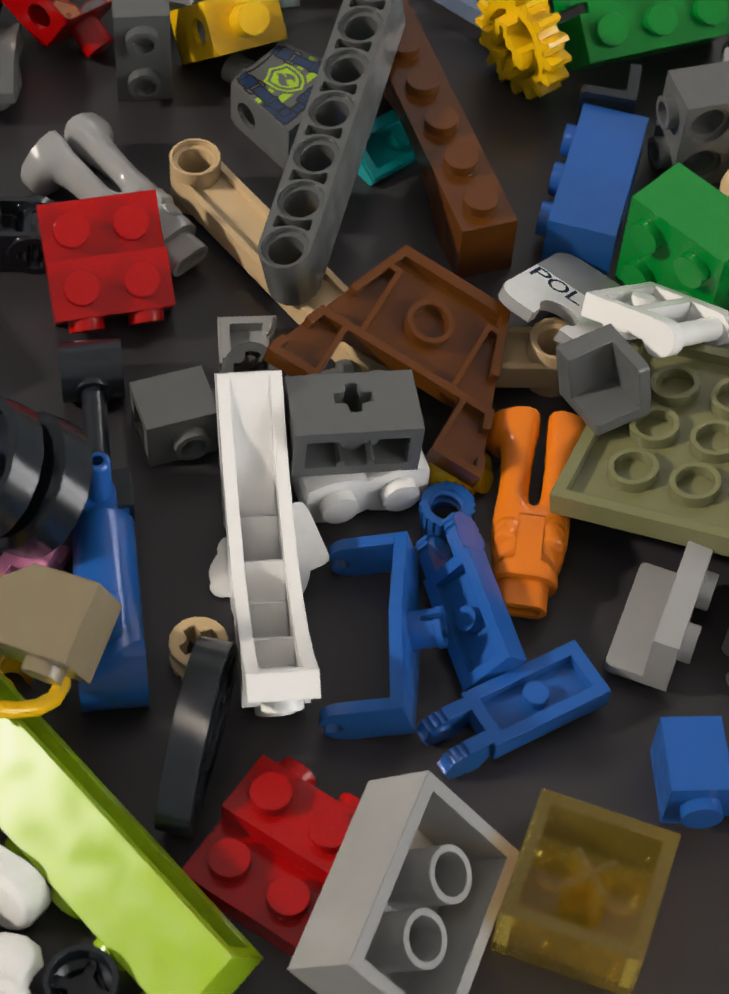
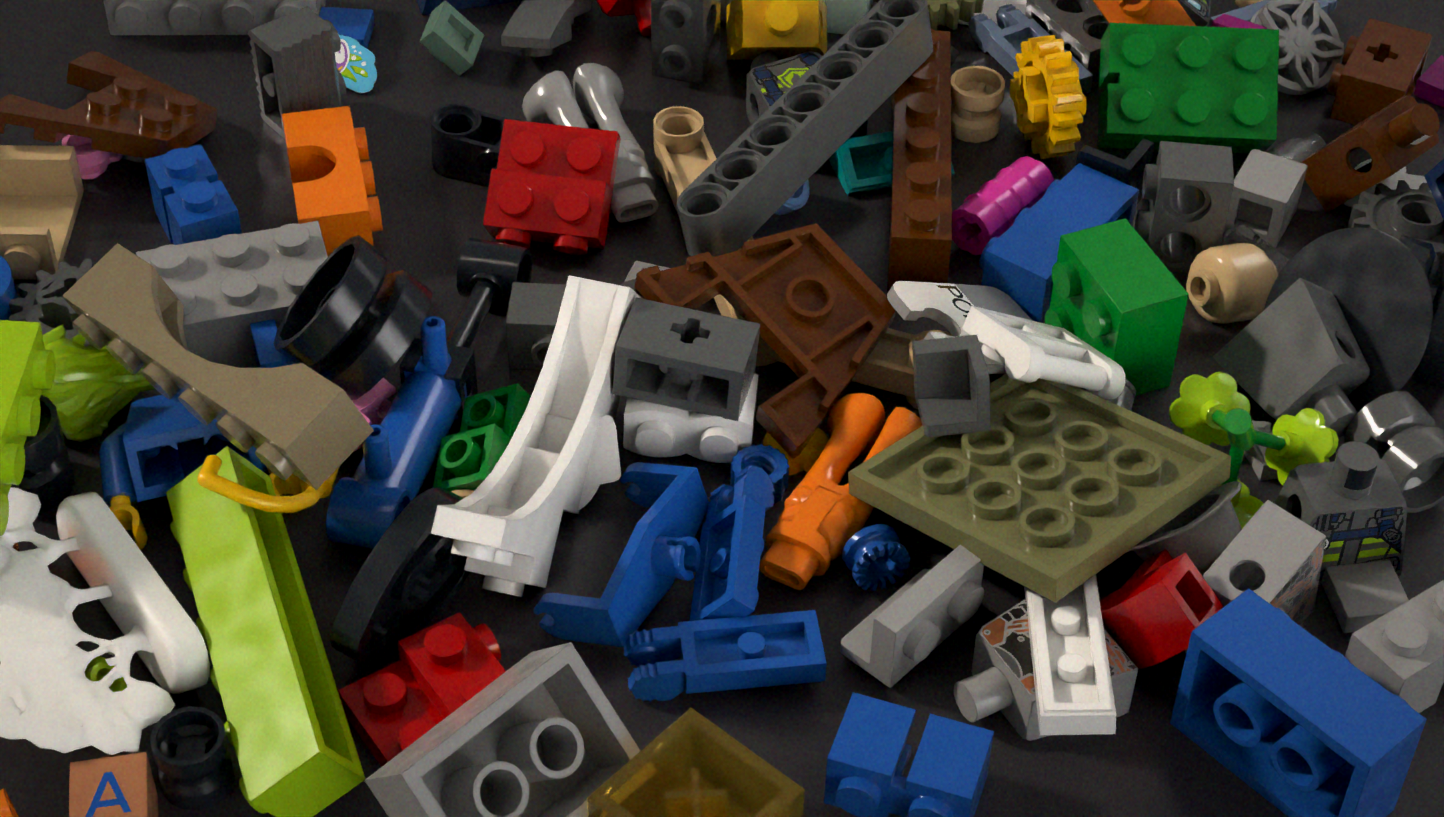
camera: 25 degrees right, 10 degrees down
(180, 560) = (484, 434): none -> green slope
(455, 49) = (975, 103): none -> tan wheel
(527, 158) = (998, 203): none -> dark pink axle
(594, 565) = (875, 556): none -> blue bush

